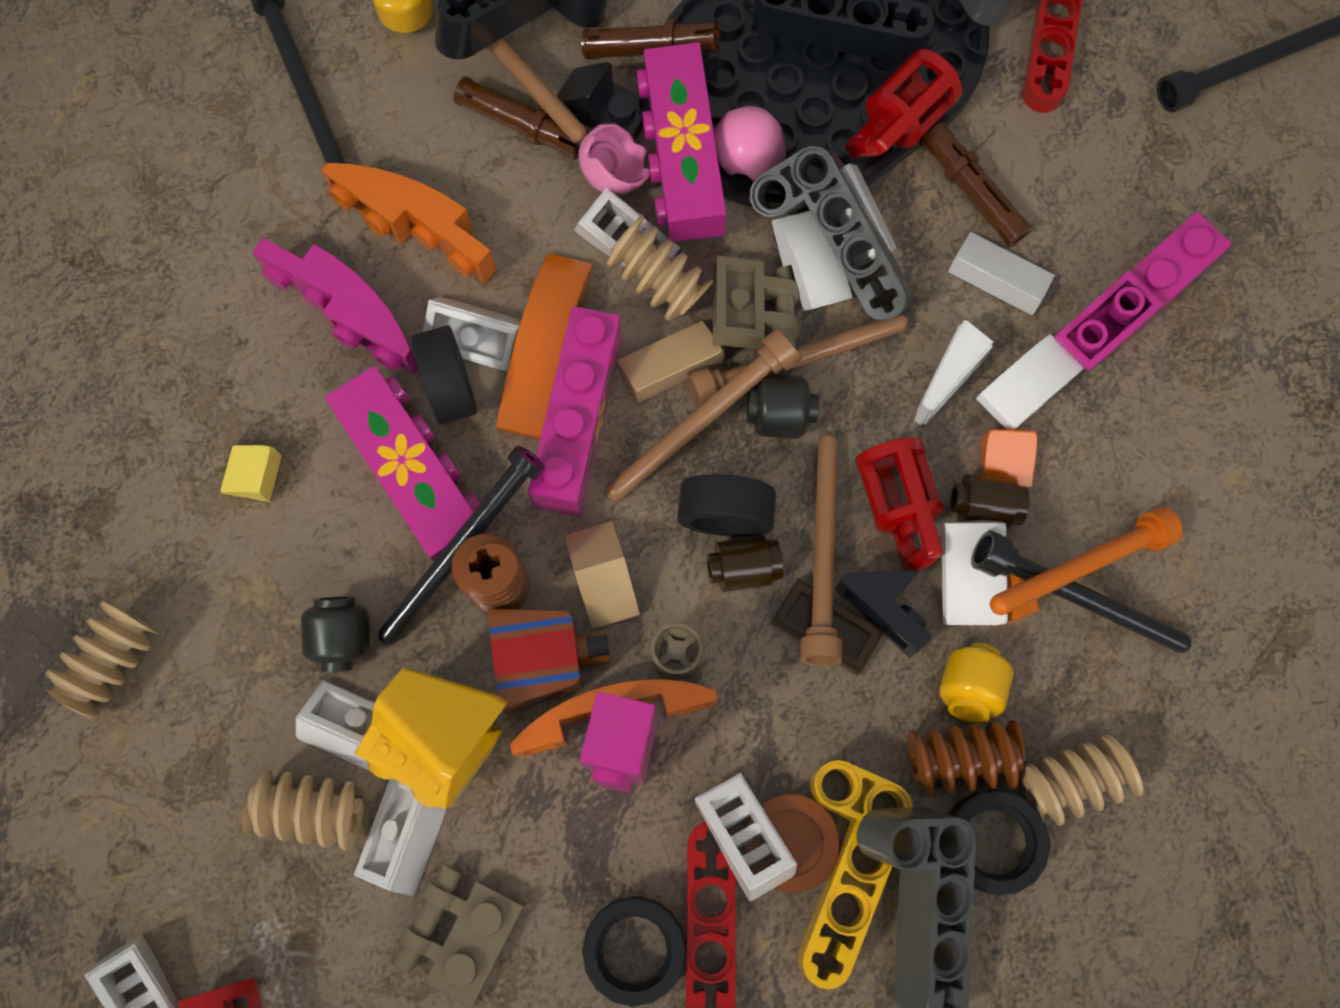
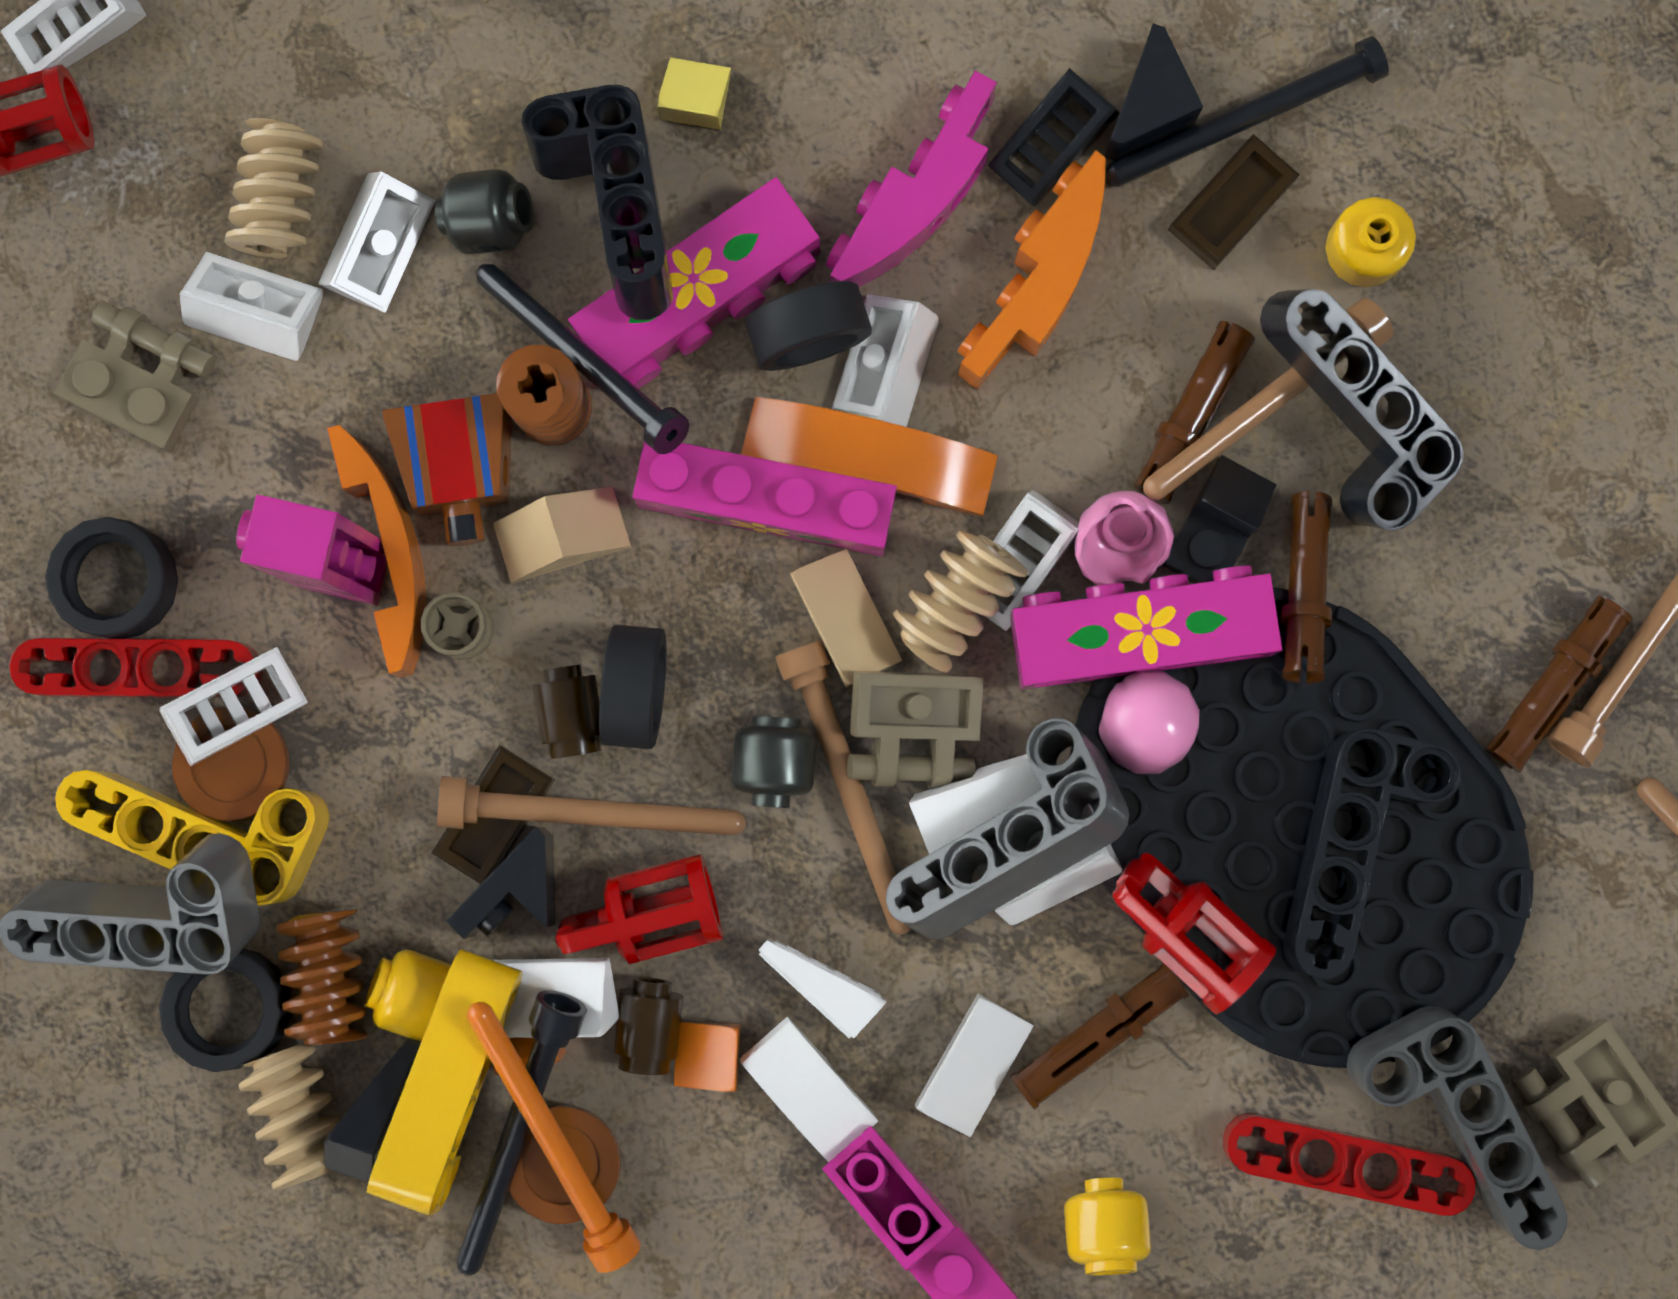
camera: 95 degrees right, 10 degrees up
(279, 138) = (1158, 100): none -> black slope
(281, 183) = (1051, 105): none -> black slope
(283, 526) = (606, 136): none -> black beam
(365, 93) = (1233, 202): none -> dark brown tile
(431, 735) = (348, 331): yellow piece -> none
(773, 356) = (829, 750): medium nougat piece -> none
(1091, 706) = (361, 1131): none -> black slope
(1106, 664) = (442, 1088): none -> yellow beam
(1115, 177) = (1107, 1228): none -> yellow head
(1119, 580) = (535, 1182): none -> dark orange piece

